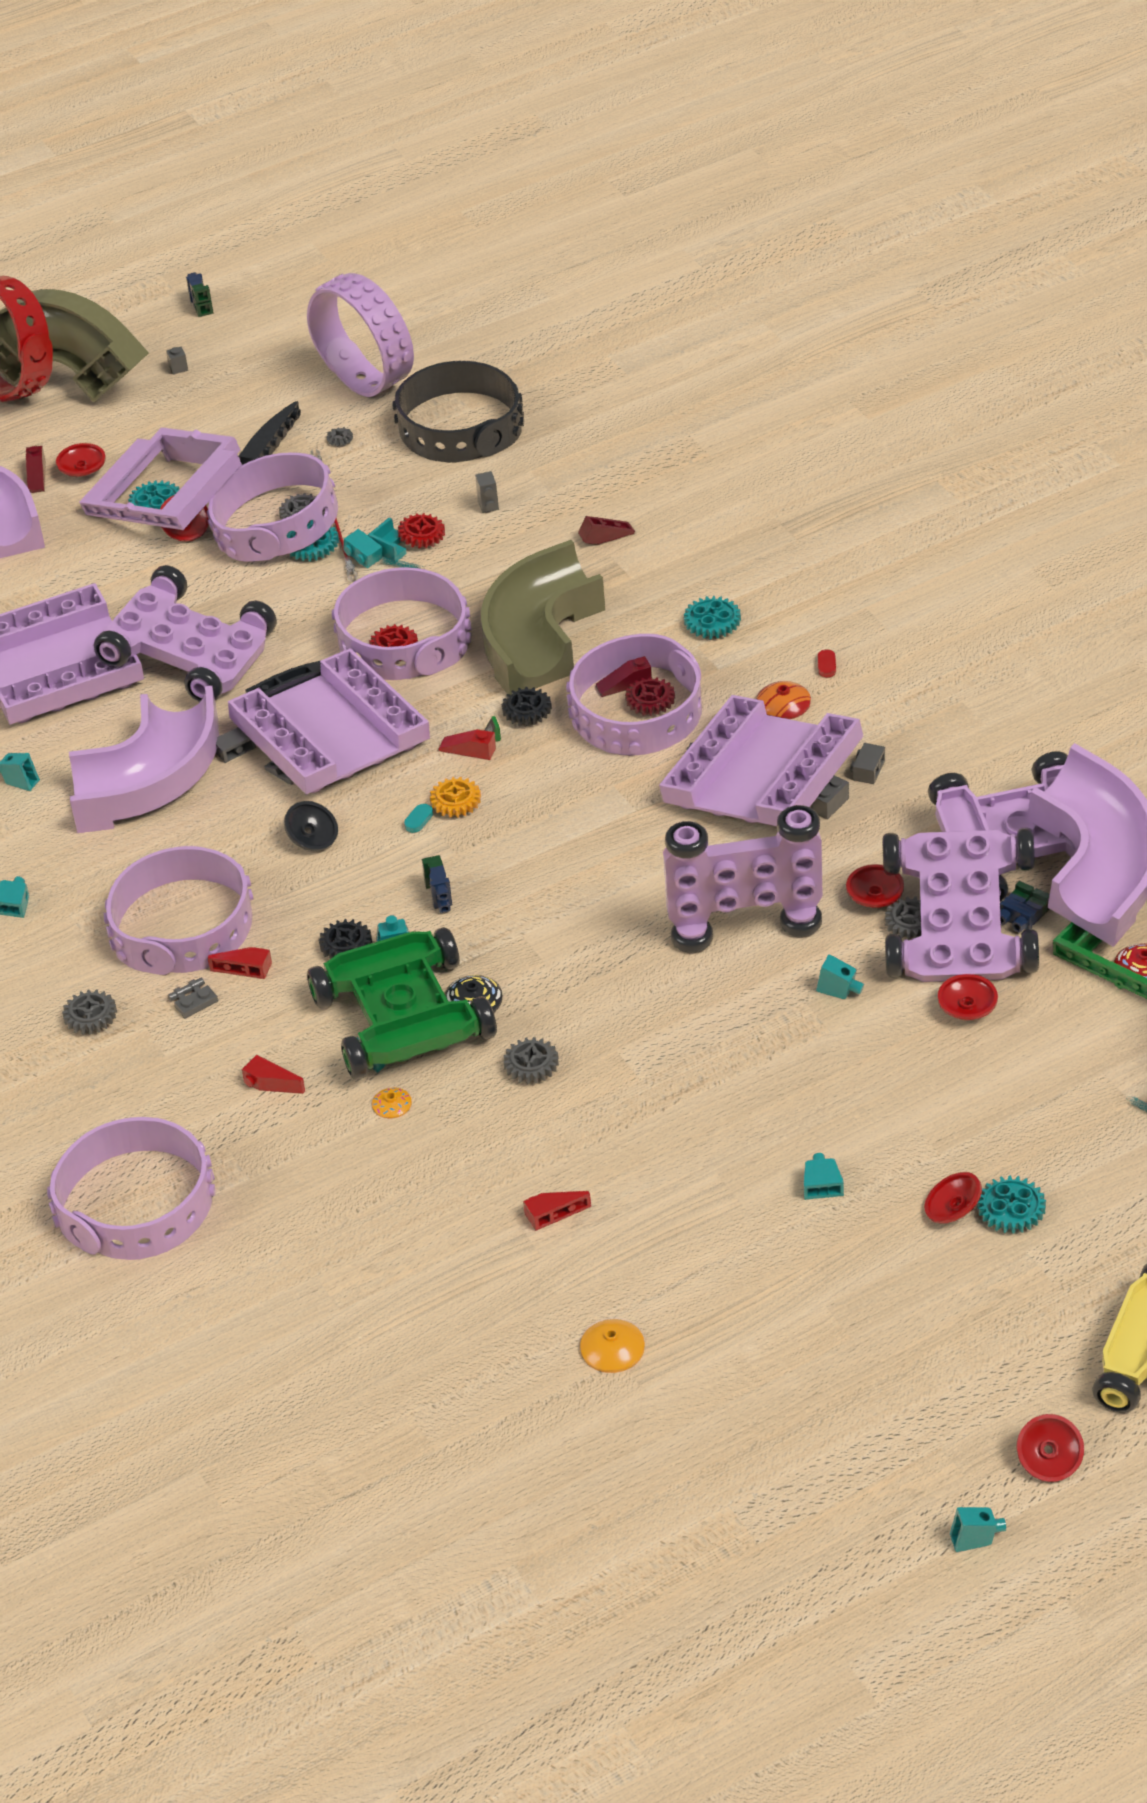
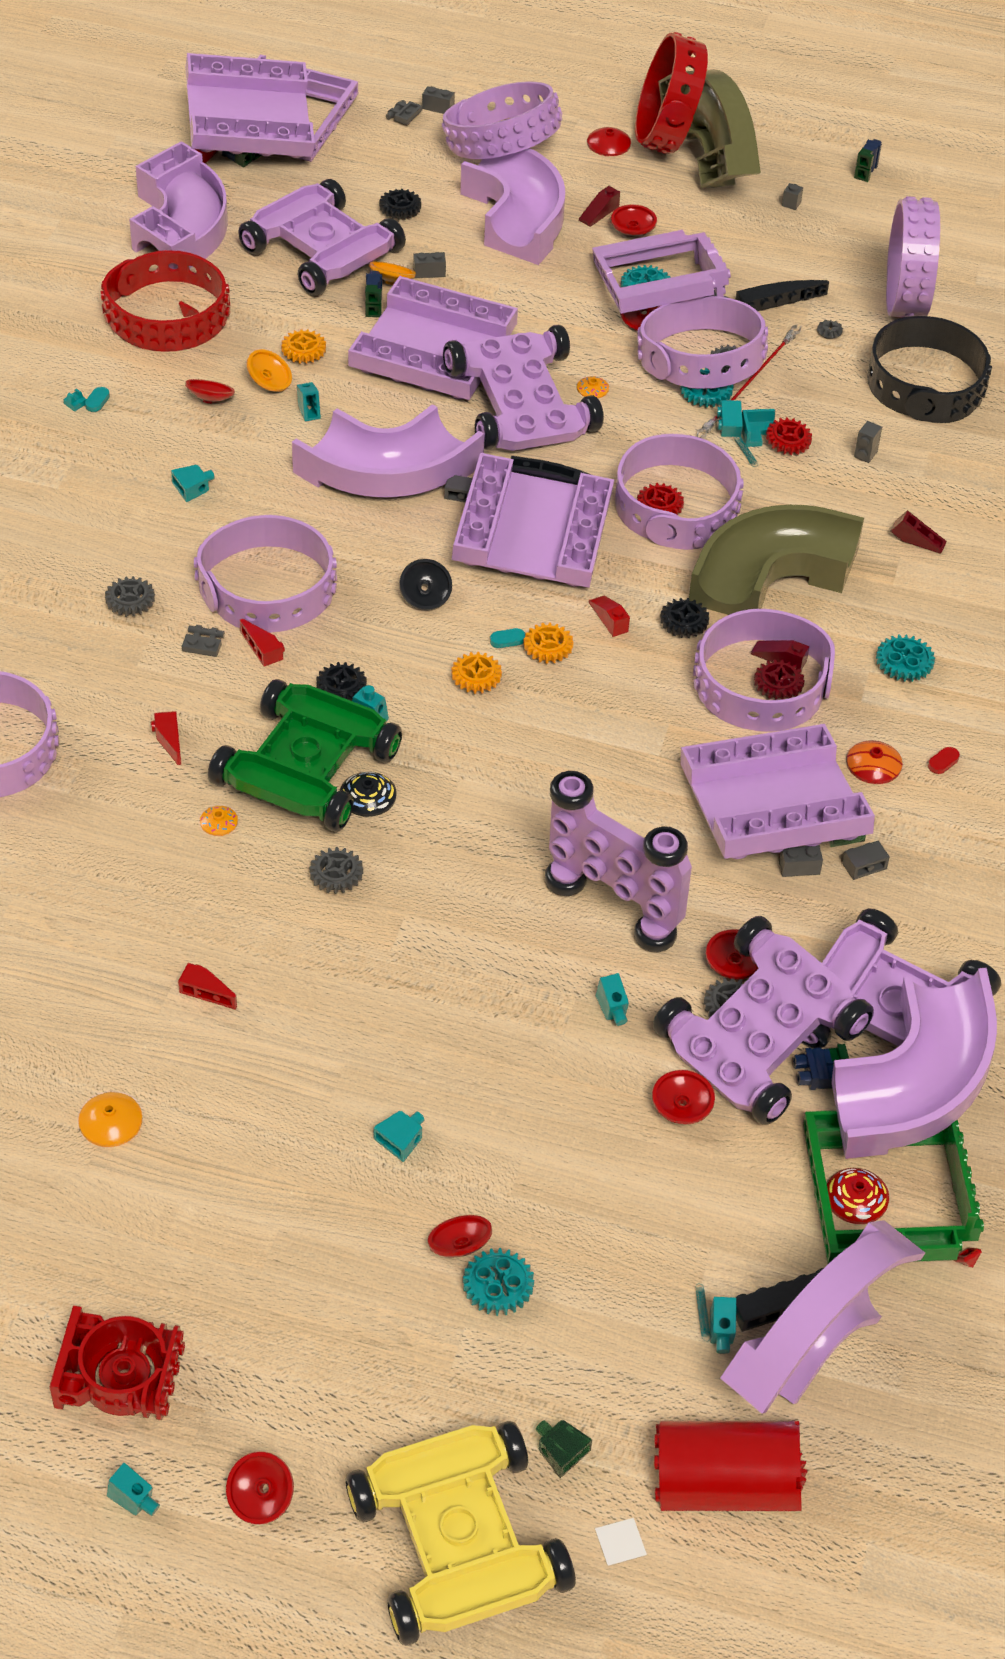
camera: 40 degrees right, 5 degrees up
(221, 603) = (593, 386): none -> light orange dish
(433, 847) = (487, 673): none -> light orange gear
(436, 879) = (447, 693): dark blue hips -> none
(493, 726) = (640, 617): green slope -> none
(861, 1479) = (94, 1340): none -> red brick

